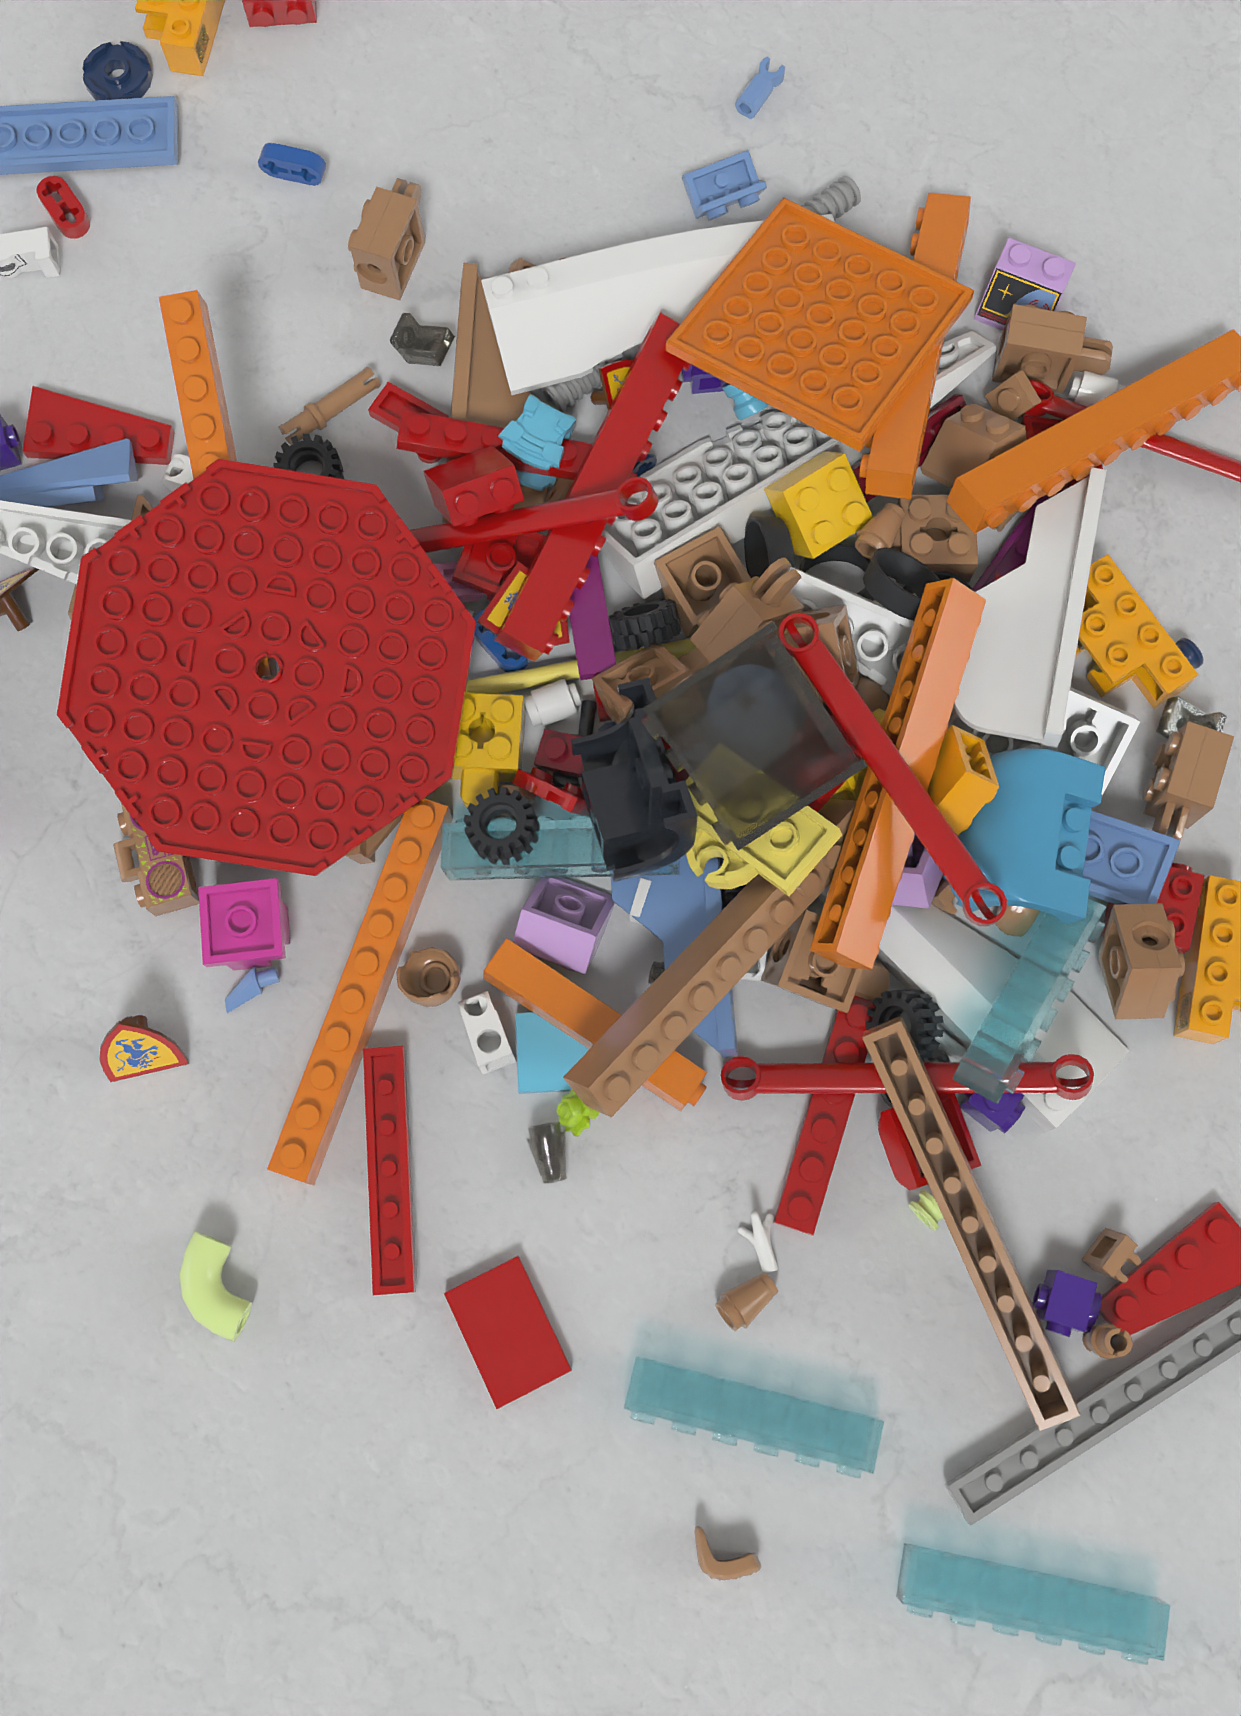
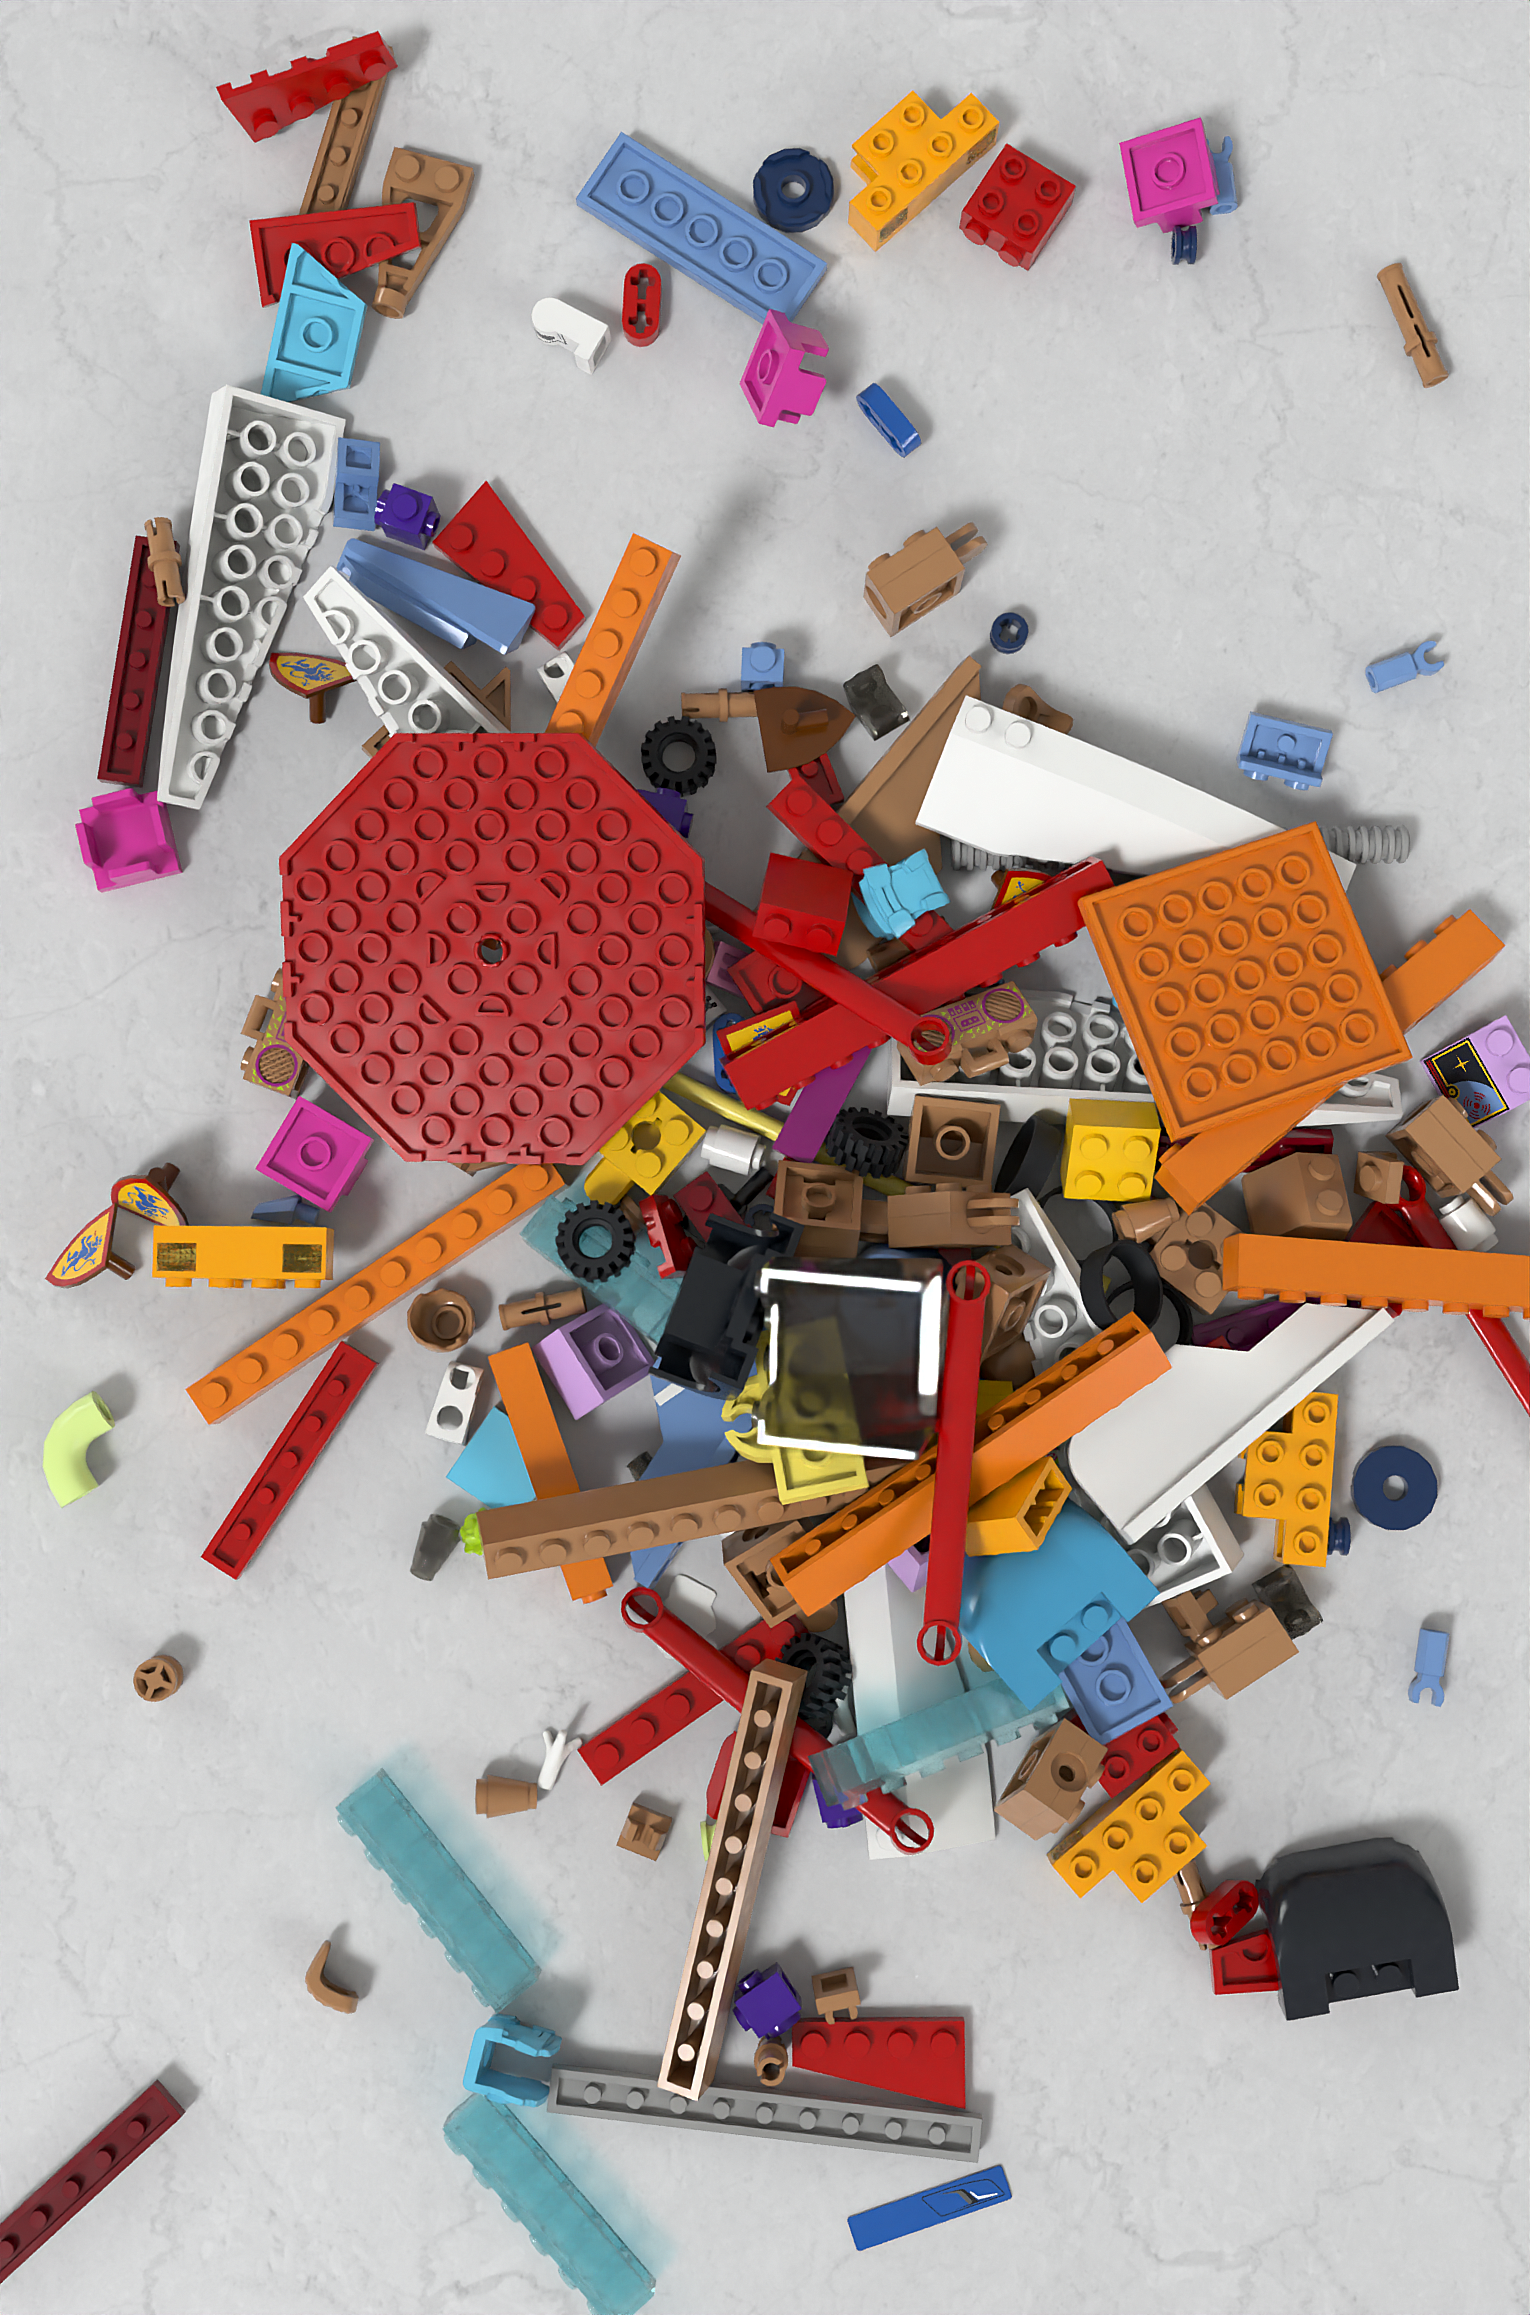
camera: 40 degrees right, 10 degrees up
(119, 1127) = (90, 1254): none -> shield
(193, 173) = (773, 376): none -> dark pink panel
(239, 1033) = (243, 1253): none -> light orange piece
(322, 364) = (762, 667): none -> medium blue brick
(378, 390) = (798, 725): none -> reddish brown shield
(400, 1420) = (150, 1681): none -> medium nougat wheel
(475, 231) = (1021, 635): none -> dark blue bush
(498, 915) = (514, 1315): none -> medium nougat pin
(507, 1332) = (290, 1669): red tile -> none
(677, 479) = (981, 1034): none -> medium nougat piece
(774, 1047) = (692, 1605): none -> white sticker
(872, 1246) = (644, 1831): none -> medium nougat tile
(920, 1533) = (500, 2086): none -> medium azure piece
(1130, 782) = (1190, 1610): none -> medium nougat tile
(1205, 582) = (1418, 1493): none -> dark blue tile

